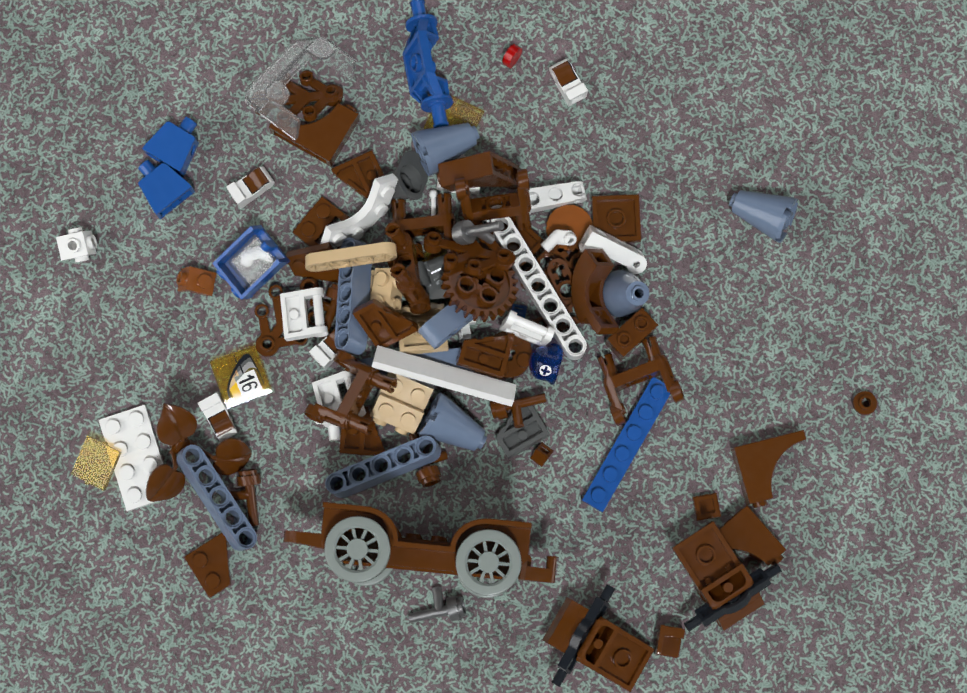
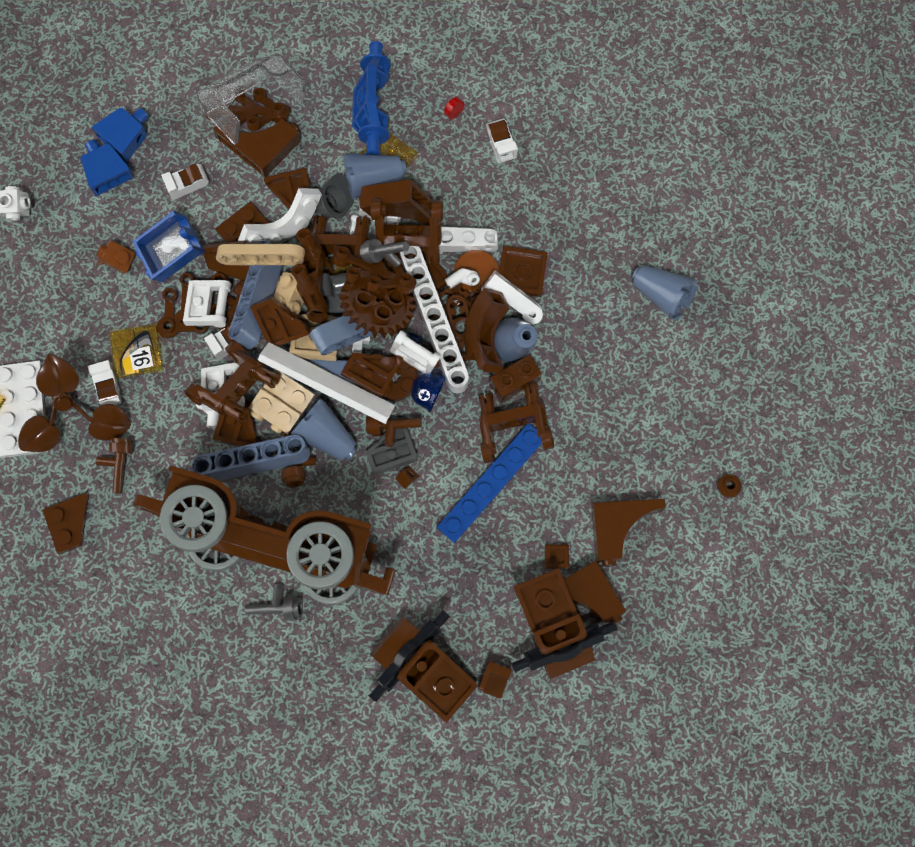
camera: 10 degrees right, 5 degrees down
(205, 493) = (84, 446): sand blue beam -> none

